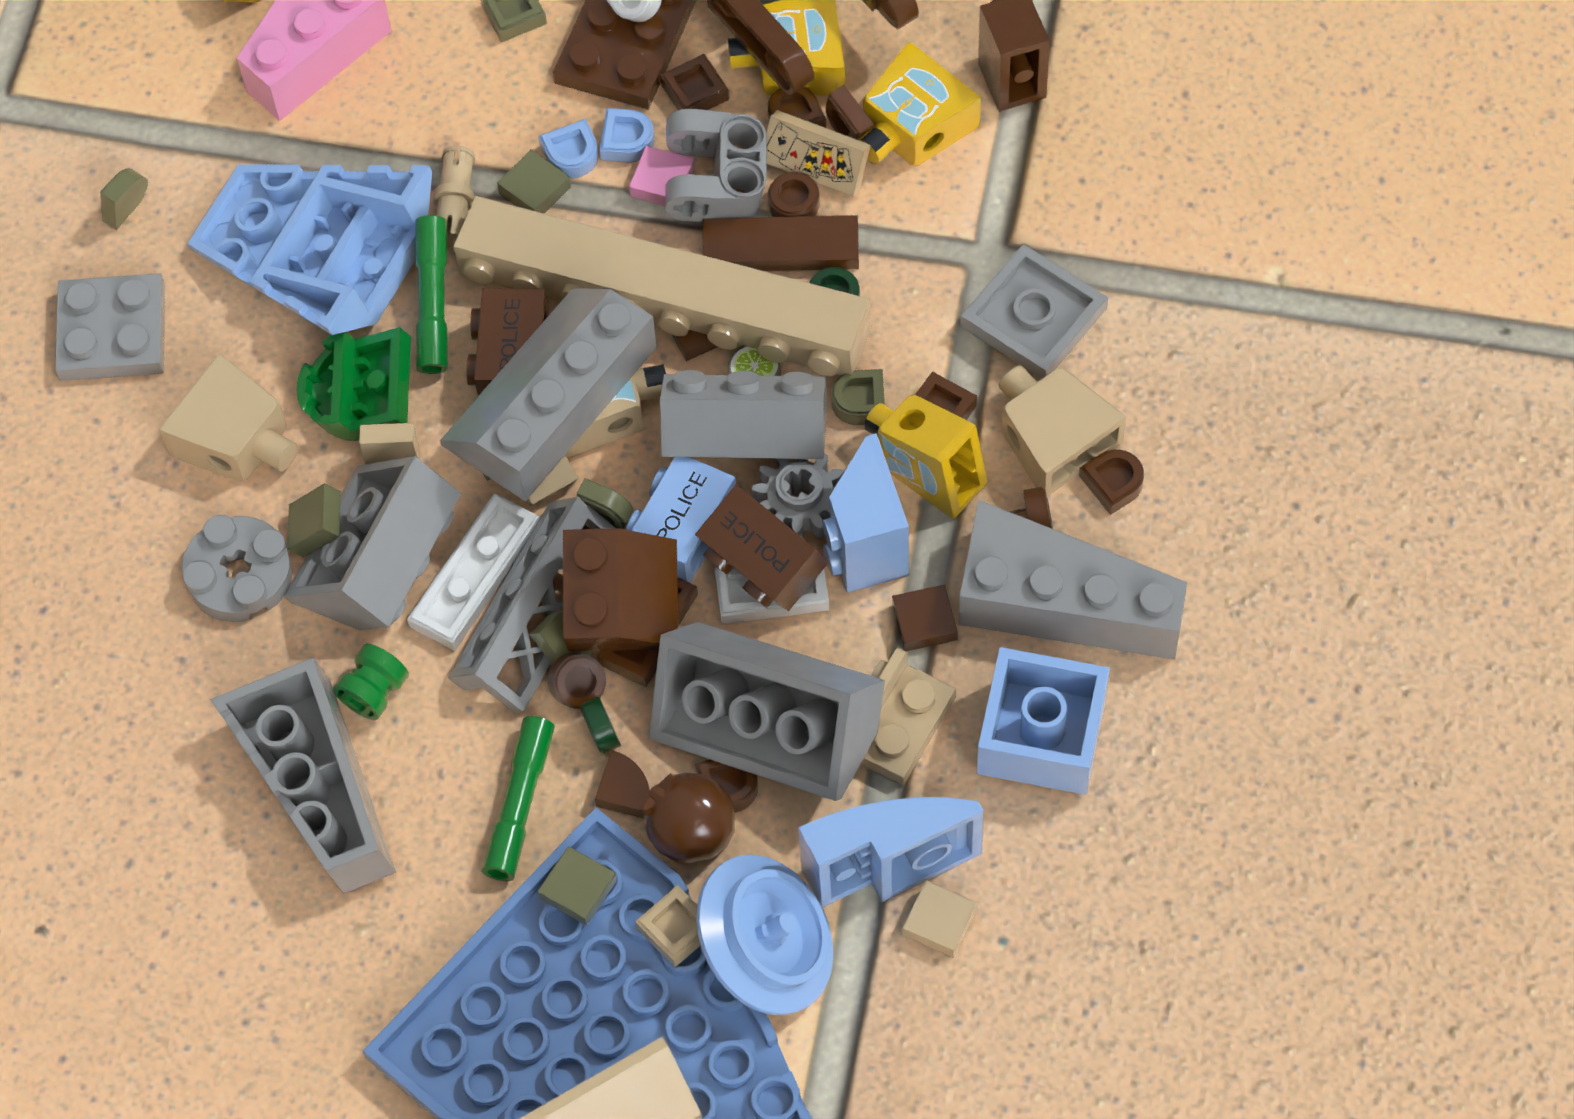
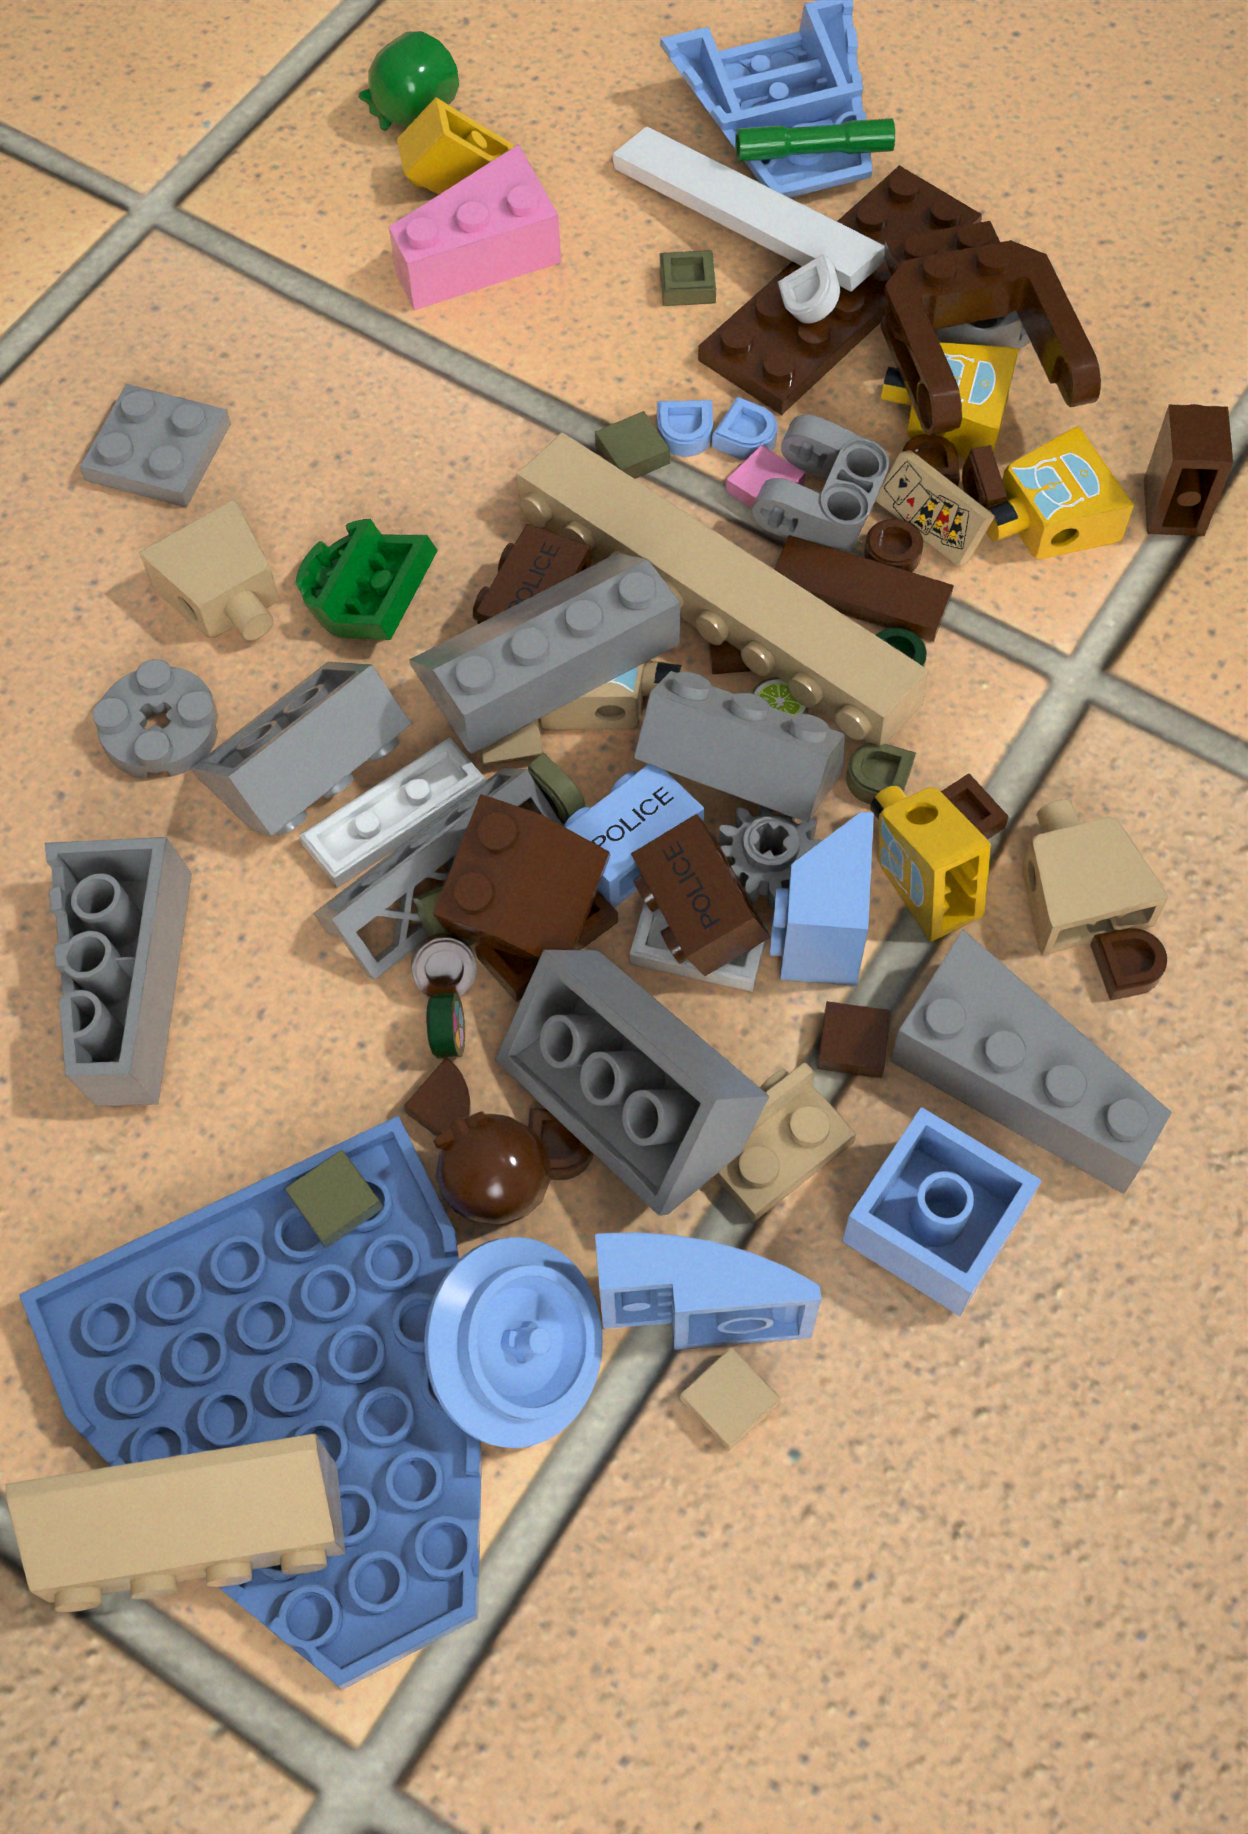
camera: 20 degrees right, 0 degrees up
(122, 196) = (225, 325): olive tile -> none
(314, 520) = (252, 699): olive tile -> none
(318, 239) = (396, 430): light blue wedge -> none
(369, 684) = (225, 889): green wheel -> none
(388, 442) = (365, 645): tan tile -> none
(431, 324) = (464, 546): green piece -> none
(454, 193) = (546, 425): tan pin -> none
(509, 830) = (299, 1104): green piece -> none
(671, 926) = (412, 1285): tan tile -> none
(695, 85) = (839, 402): reddish brown tile -> none
(1034, 312) = (1107, 749): light grey plate -> none
(1037, 507) = (1027, 962): reddish brown tile -> none

